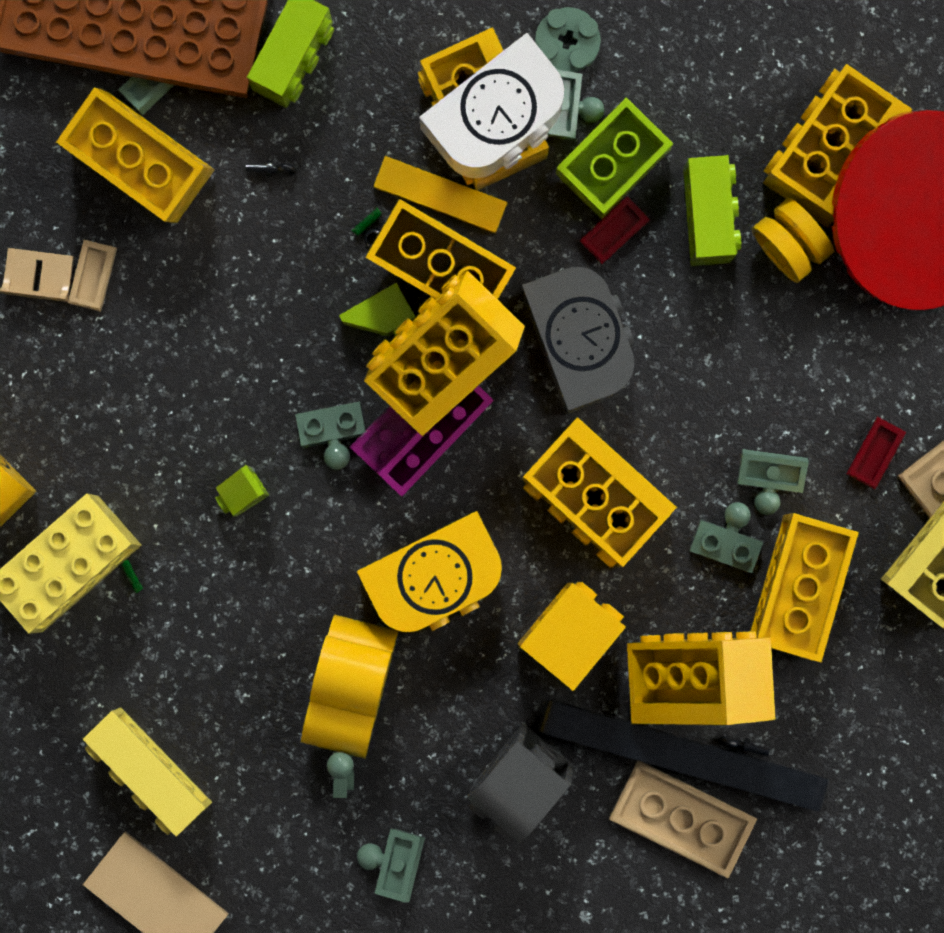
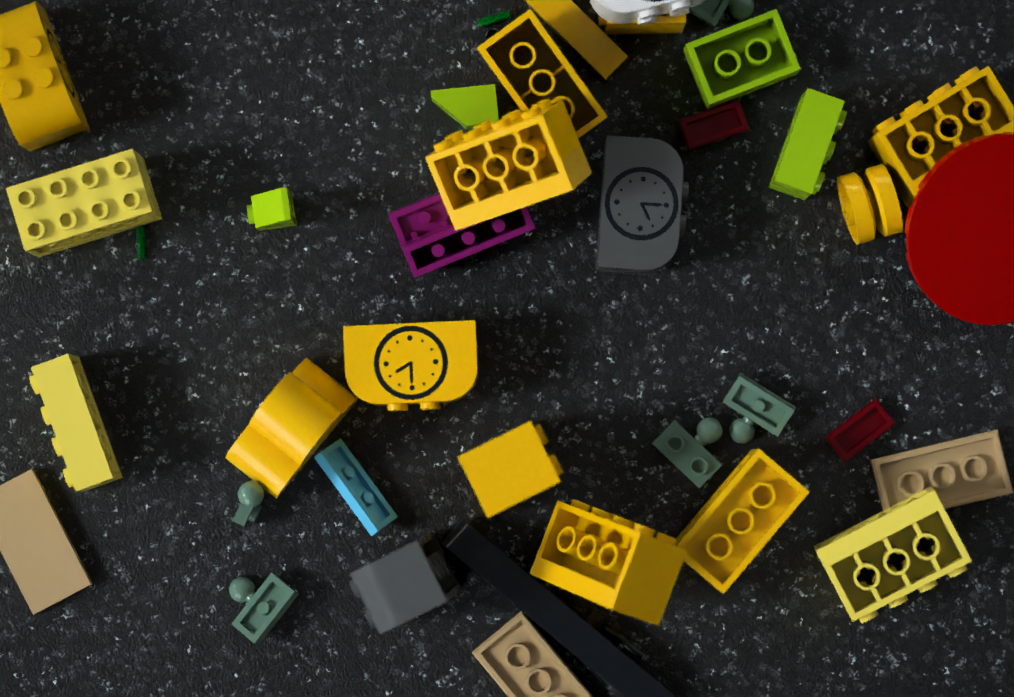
camera: 25 degrees right, 0 degrees up
(331, 427) = (379, 188): sand green plate -> none
(433, 714) = (355, 487): none -> medium azure plate
(620, 489) = (607, 337): yellow brick -> none

